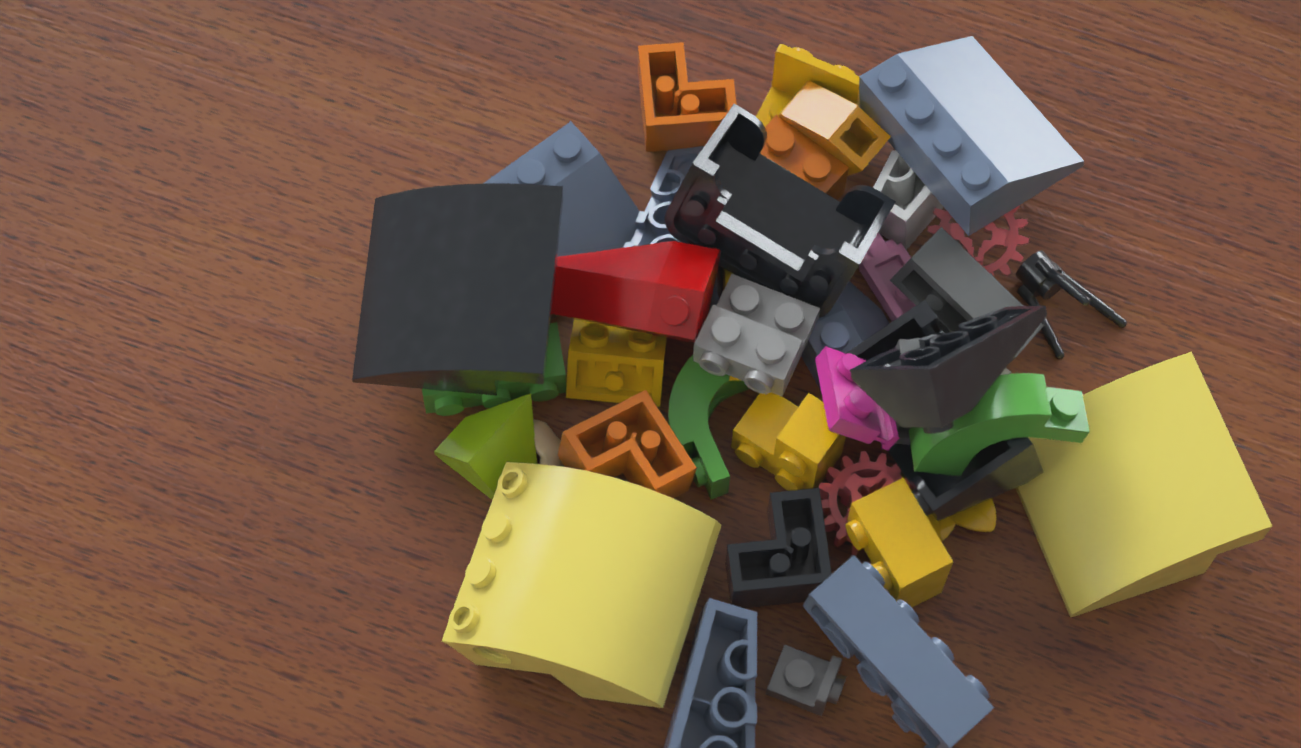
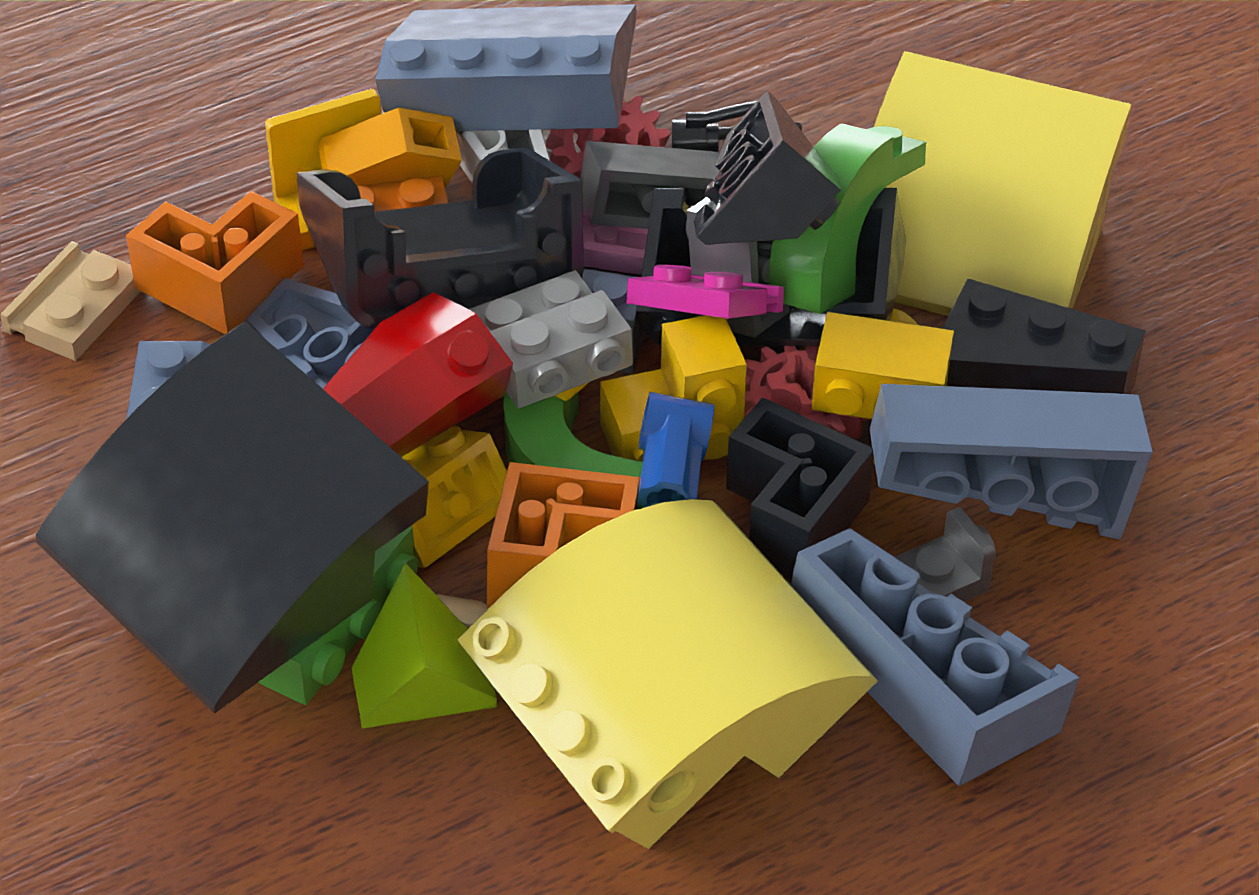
camera: 50 degrees left, 20 degrees down
(597, 49) = (71, 301): none -> tan plate
(739, 465) = (674, 445): none -> blue piece
(1020, 611) = (1037, 345): none -> black wedge

